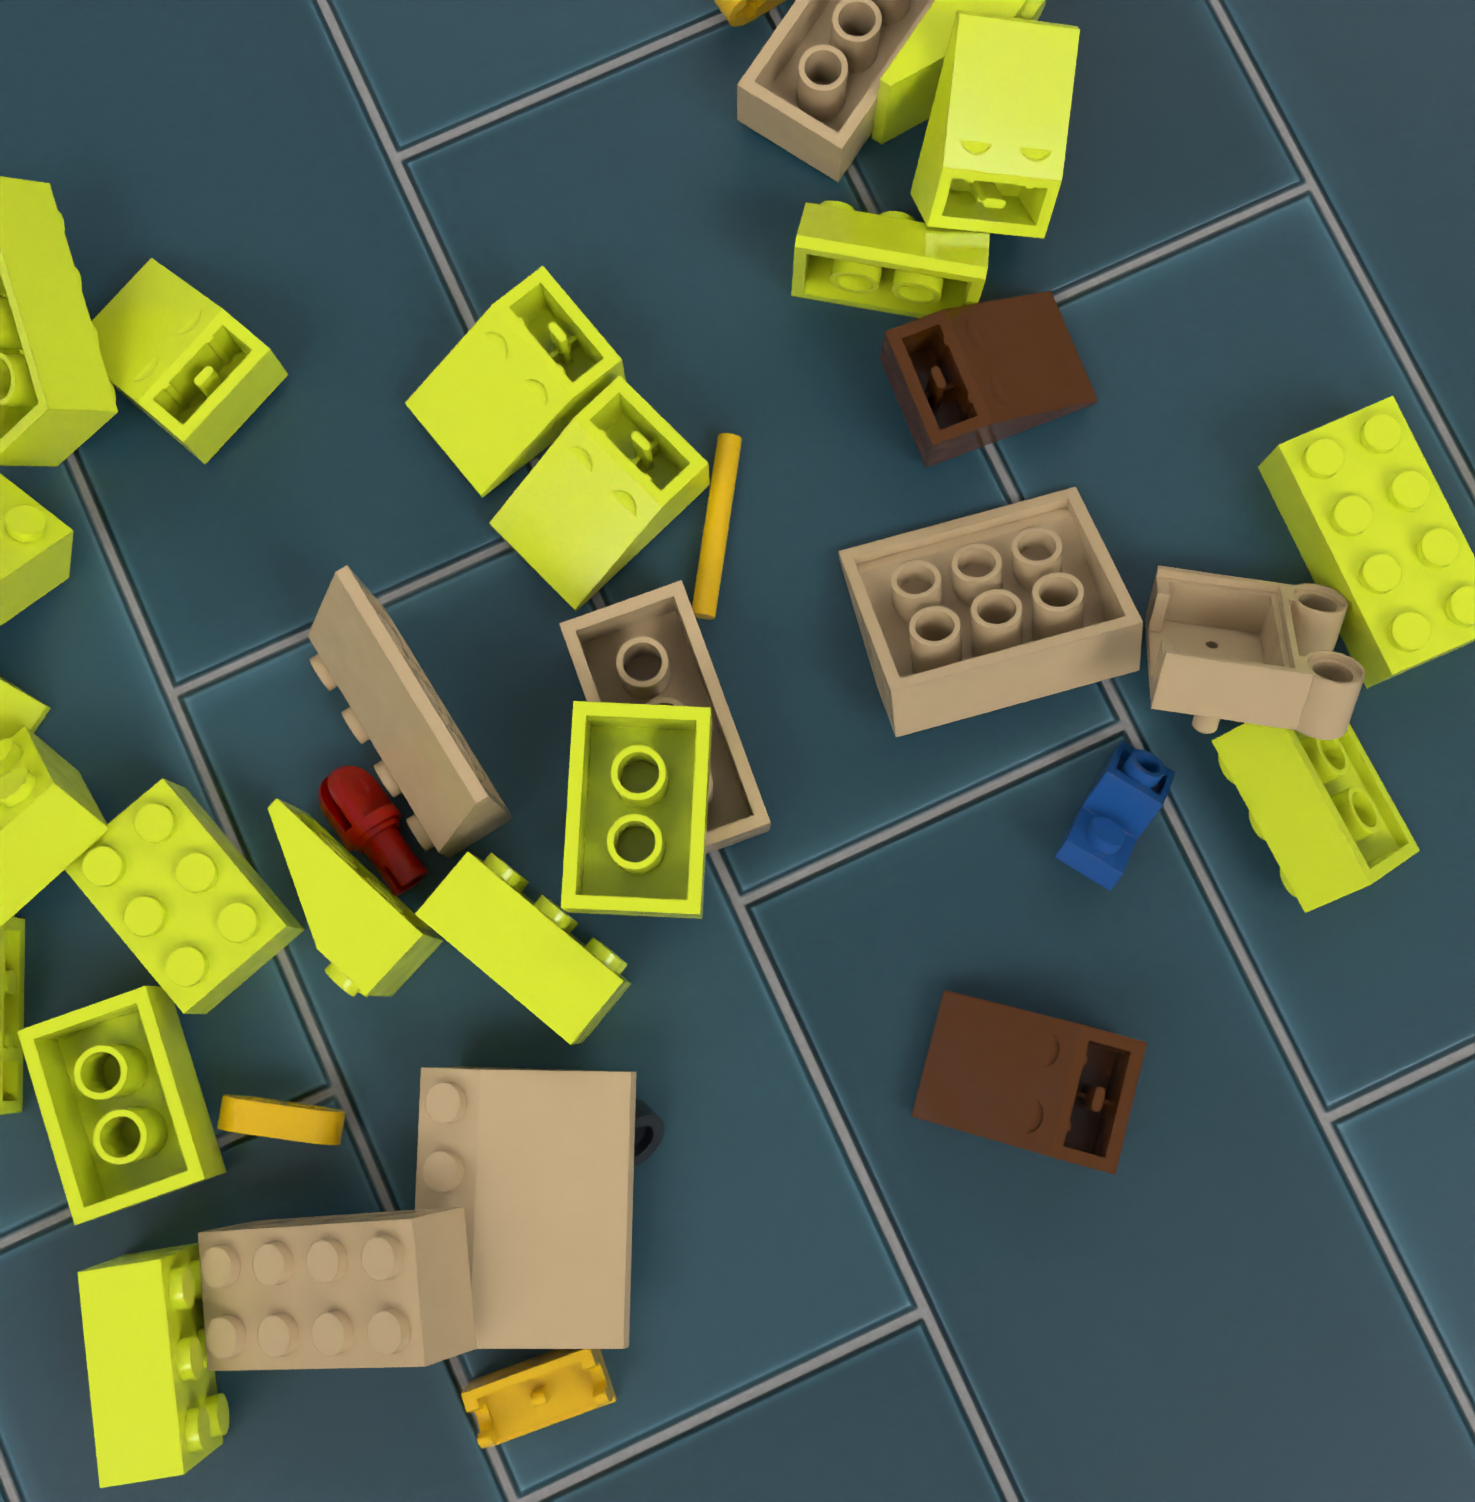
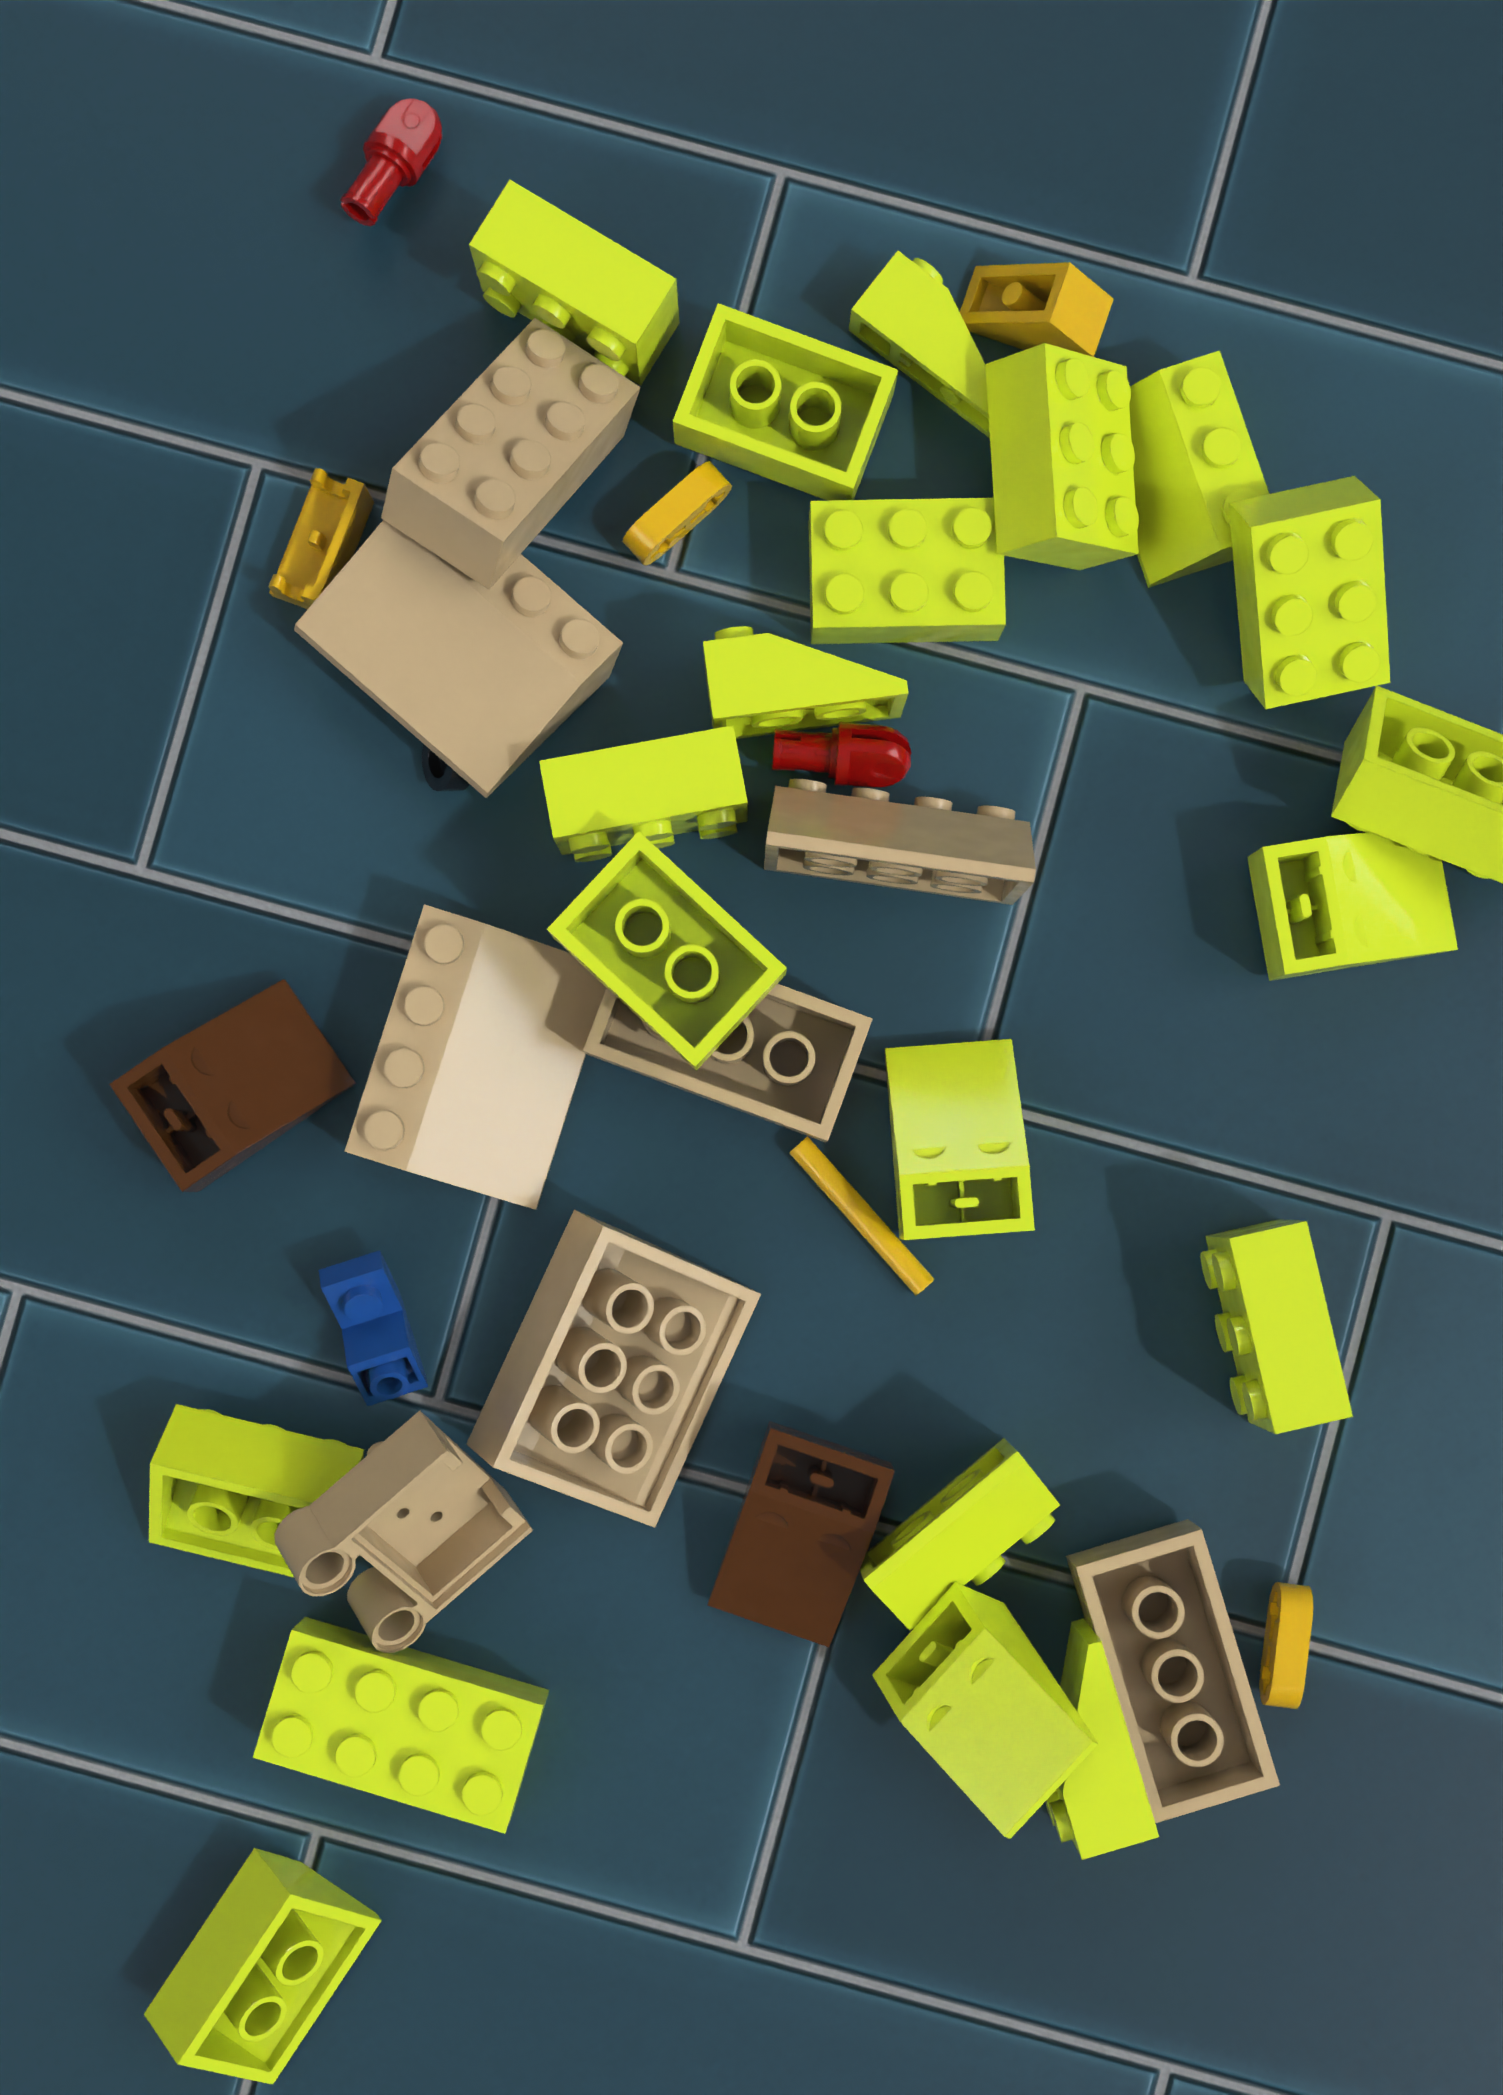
camera: 125 degrees right, 5 degrees up
(514, 381) = (1105, 1149): neon yellow slope -> none
(541, 154) = (1276, 1326): none -> neon yellow brick
(845, 908) = (477, 1059): none -> tan slope

